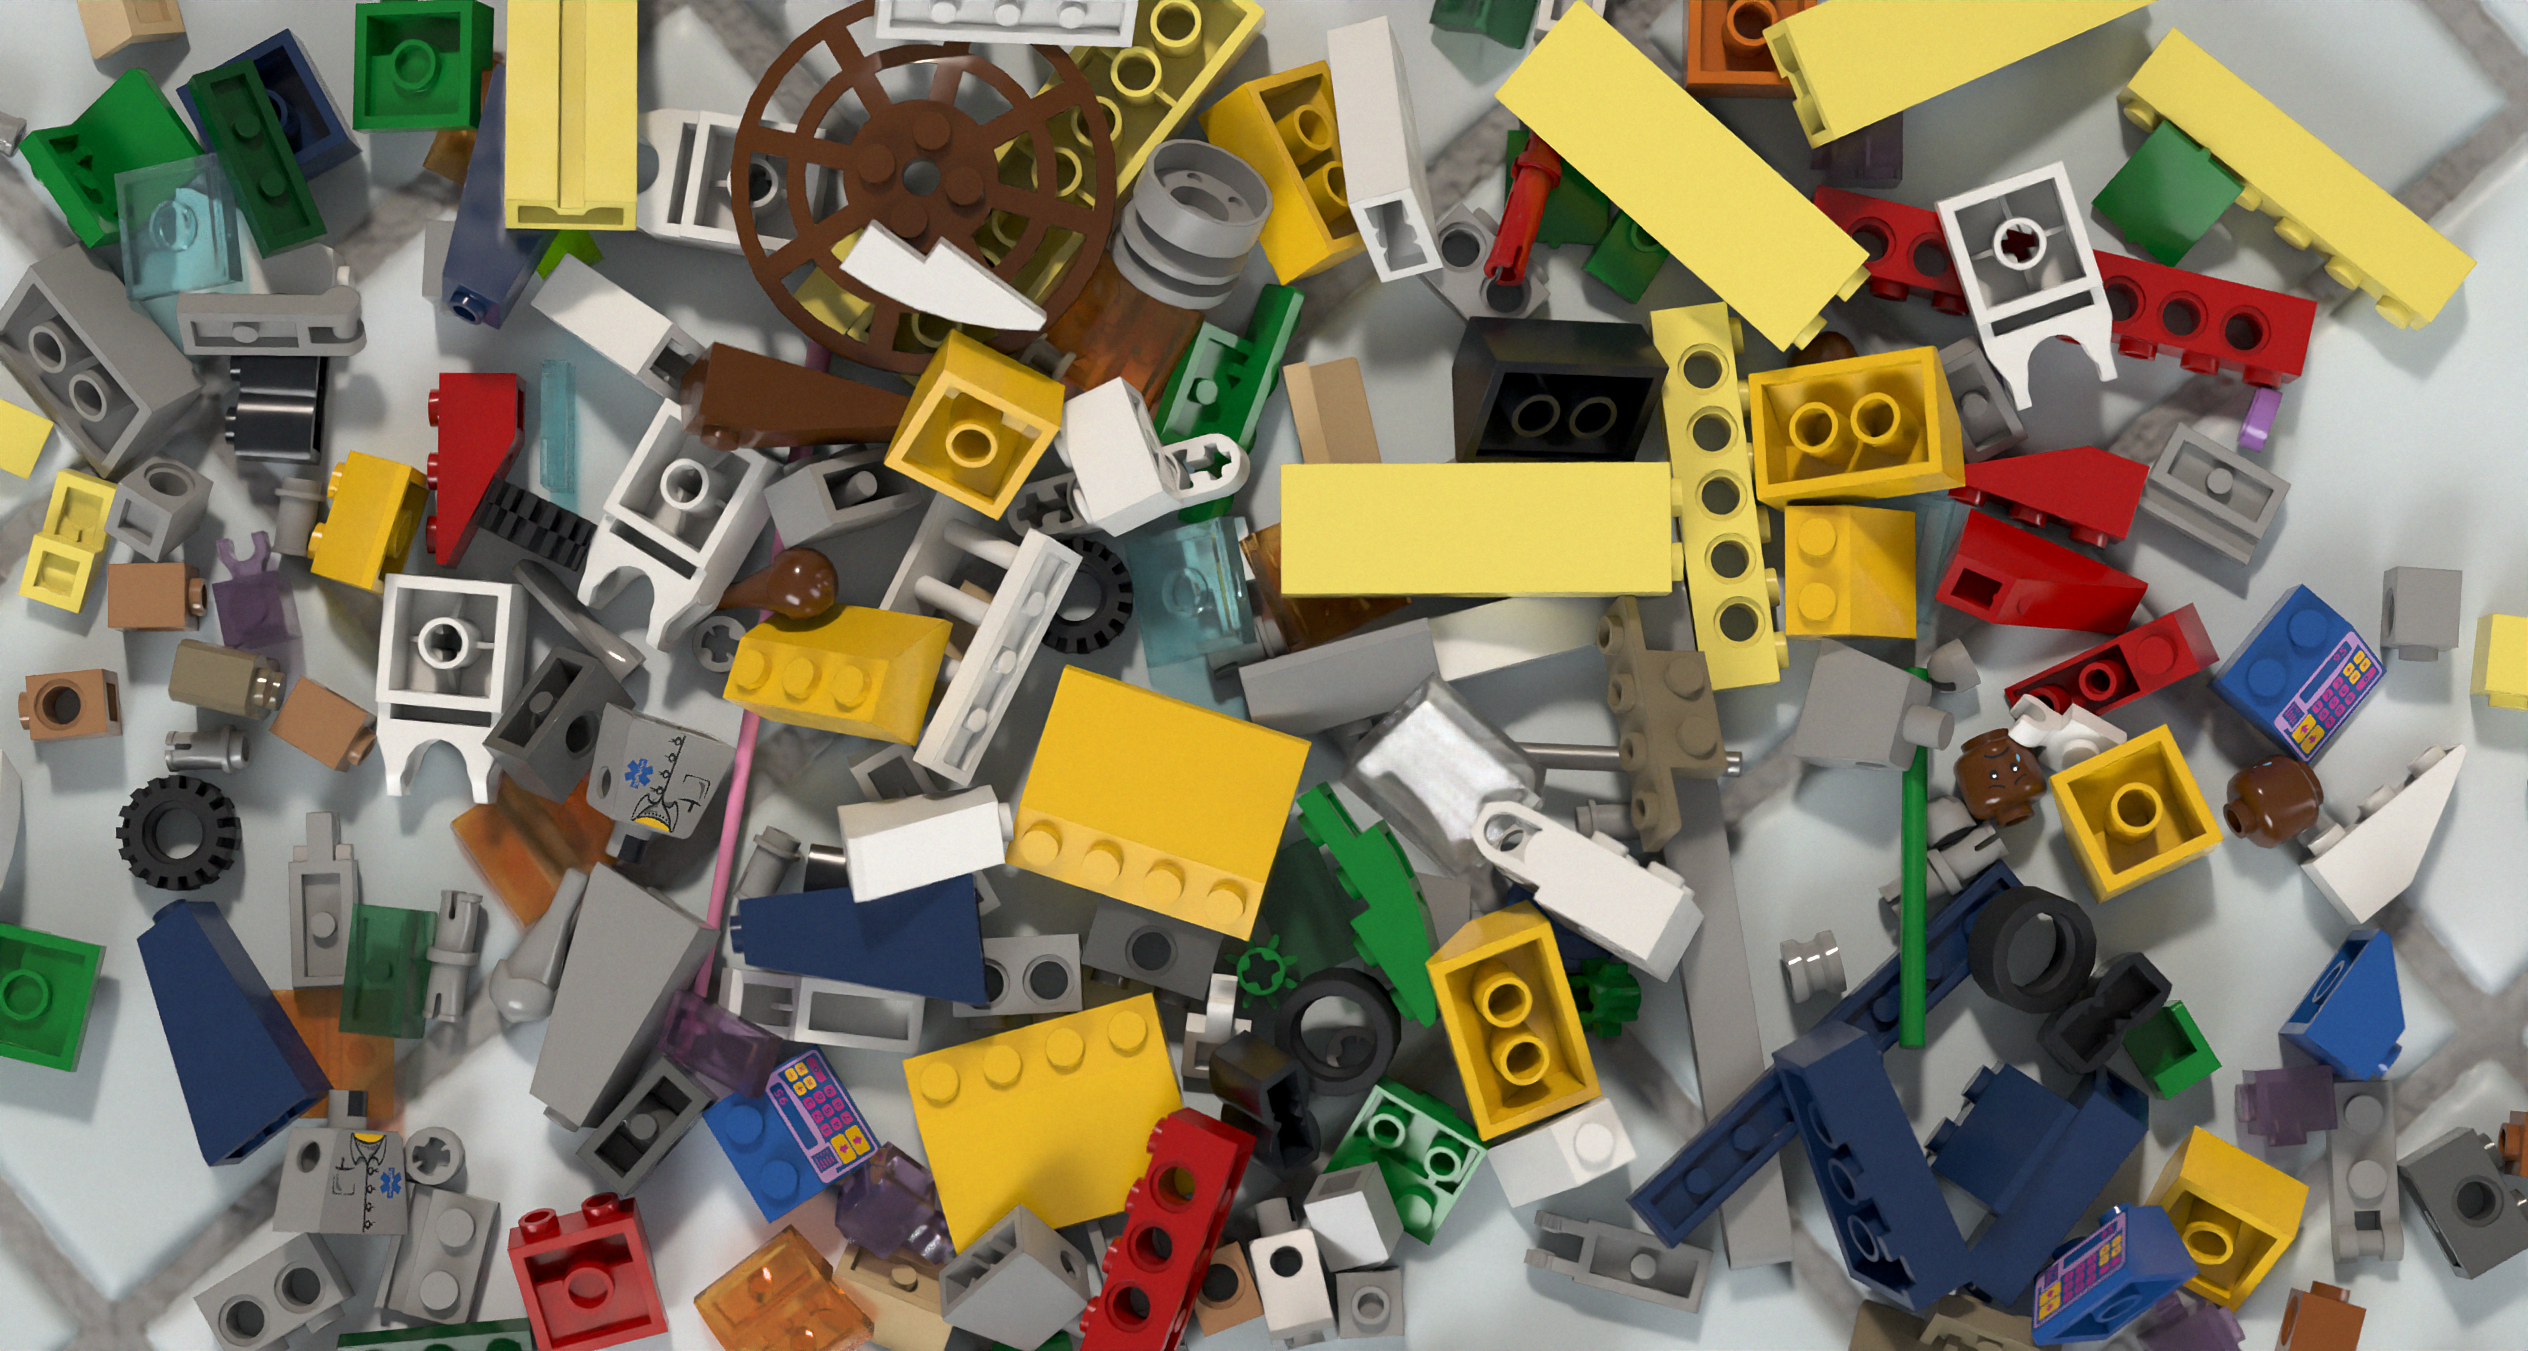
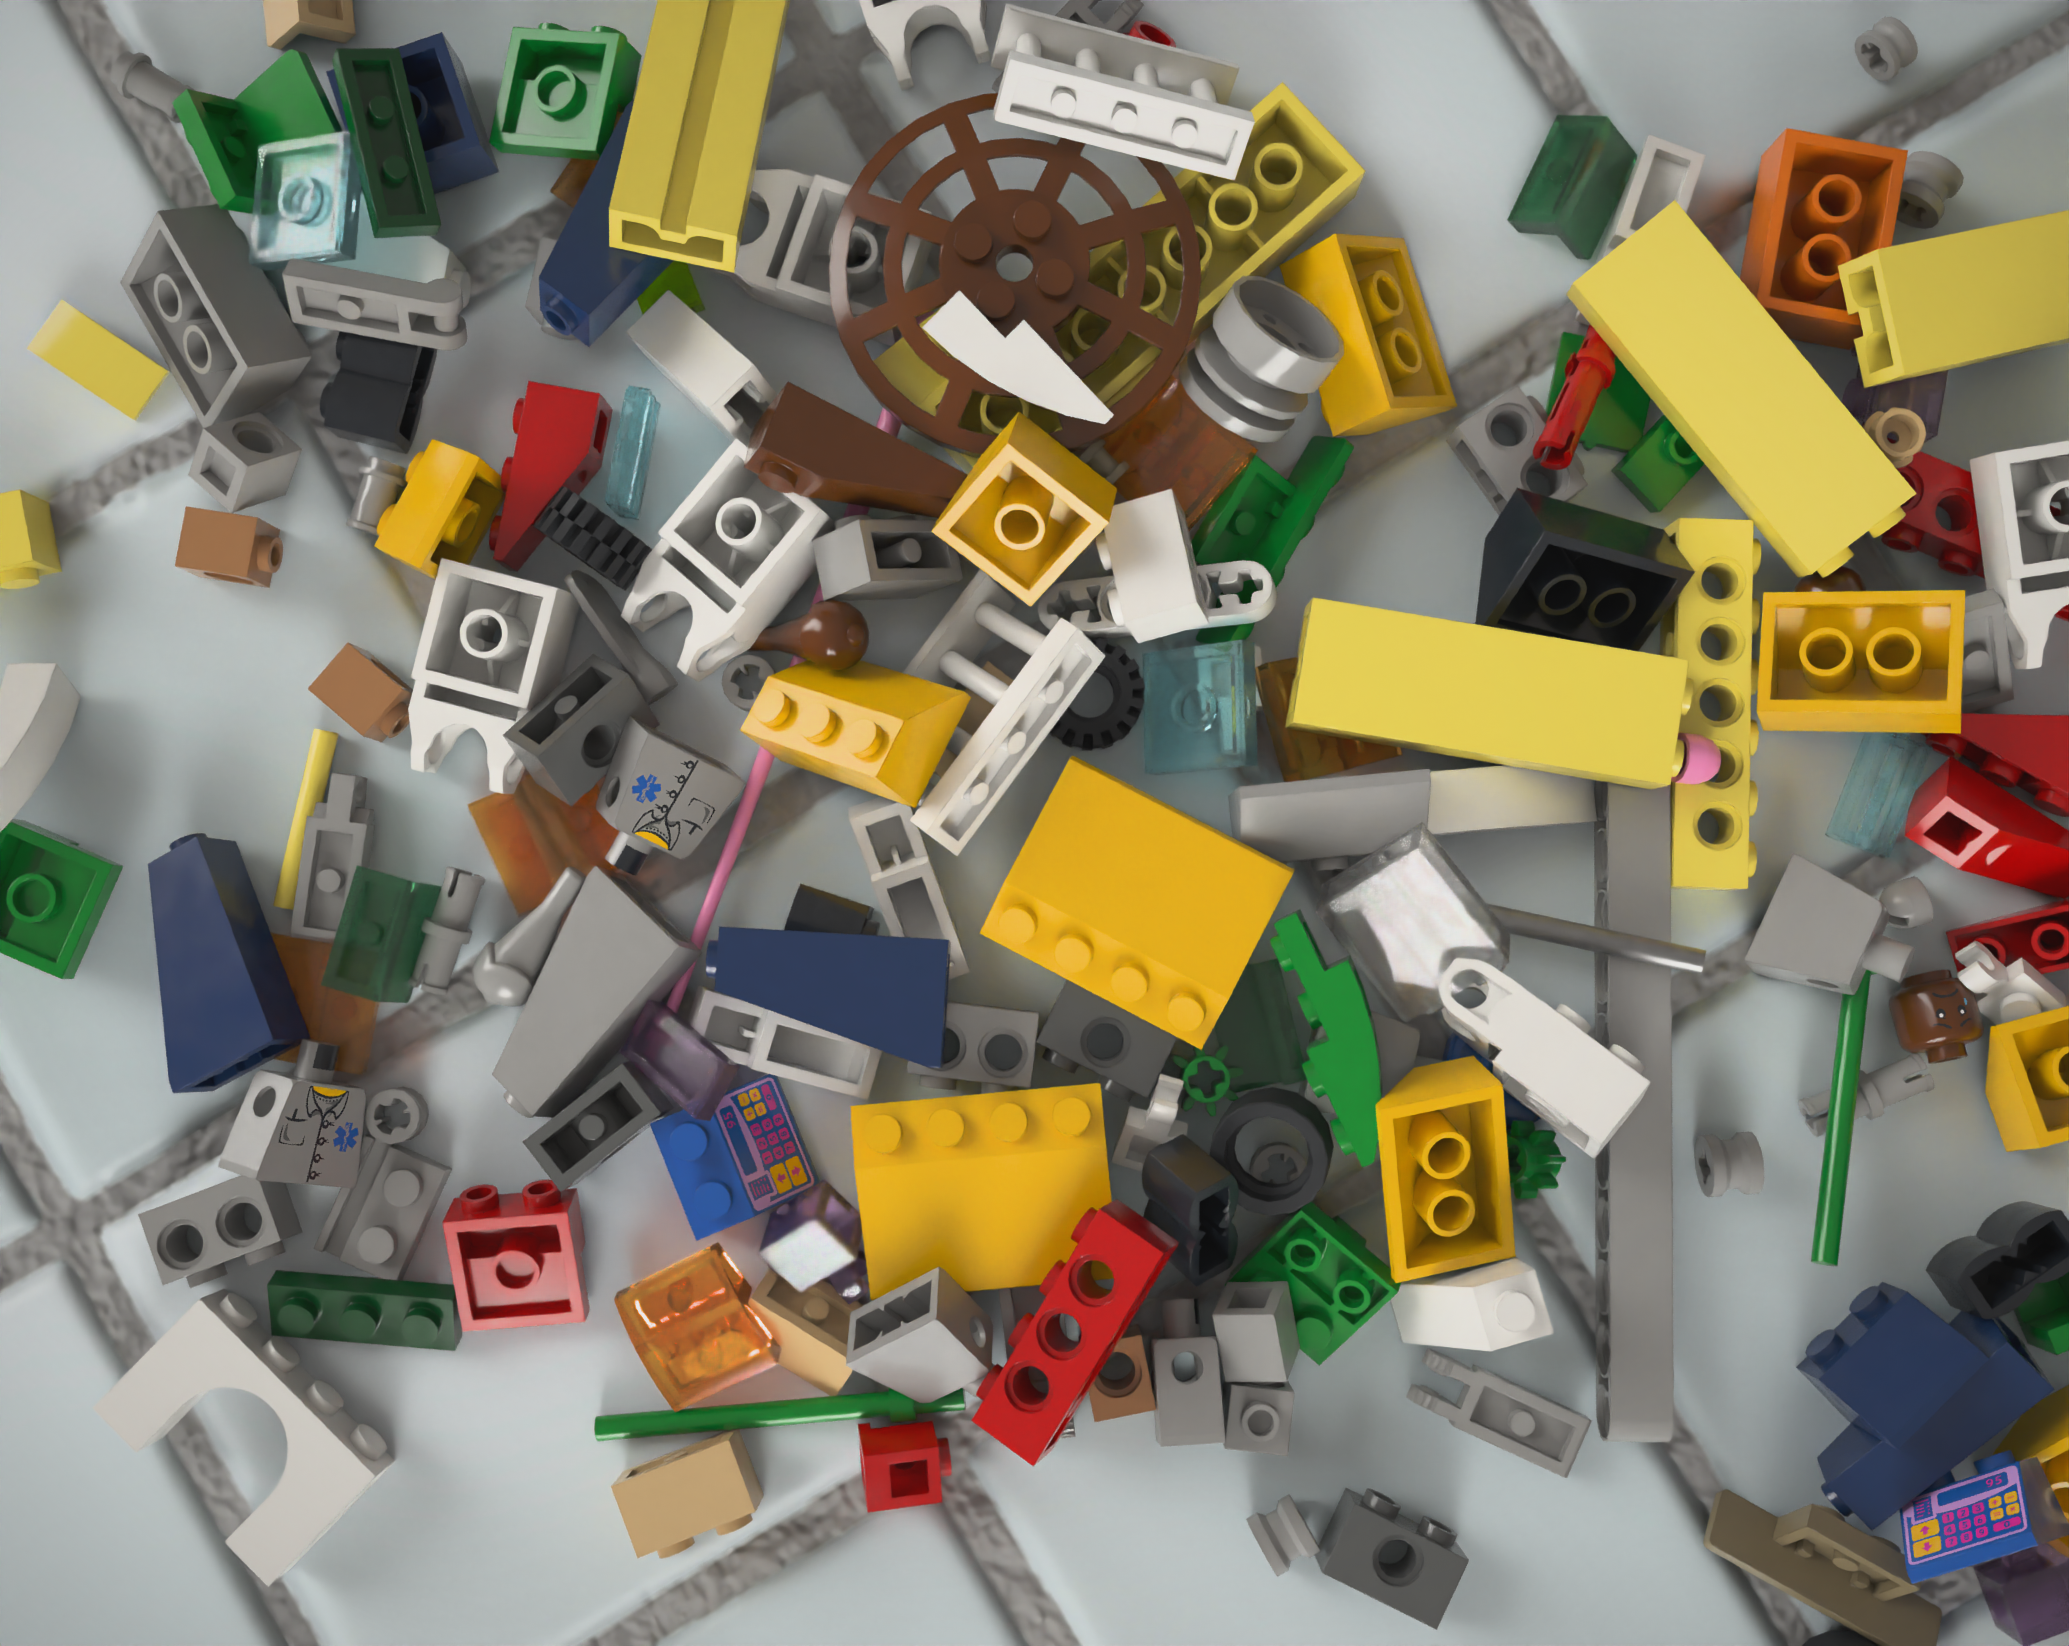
camera: 10 degrees right, 0 degrees up
(72, 542) = (155, 497): light yellow slope -> none
(98, 712) = (158, 639): medium nougat brick -> none
(140, 833) = (177, 766): black tyre -> none
(209, 750) = (269, 700): light grey pin -> none
(226, 680) = (274, 633): dark tan brick -> none
(256, 604) = (320, 569): clear purple brick -> none
(282, 843) = (311, 791): none -> light yellow bar
(768, 864) = (757, 896): light grey pin -> none
(922, 839) = (905, 899): white slope -> none
(1269, 646) = (1231, 778): light grey pin -> none
(1331, 412) = (1354, 559): tan panel -> none
(1382, 150) = (1454, 323): white slope -> none
(1608, 819) = (1577, 993): light grey pin -> none
(1662, 719) = (1634, 907): dark tan bracket -> none
(1702, 559) = (1700, 759): none -> bright pink hinge
(1760, 1117) = (1729, 1262): dark blue tile -> none
(1850, 573) = (1821, 796): yellow slope -> none
(1856, 177) = (1907, 428): none -> tan plate
(1871, 1168) = (1770, 1379): dark blue wedge -> none
(1947, 820) = (1880, 1046): light grey hinge -> none
(2070, 963) = (1973, 1203): black tyre -> none

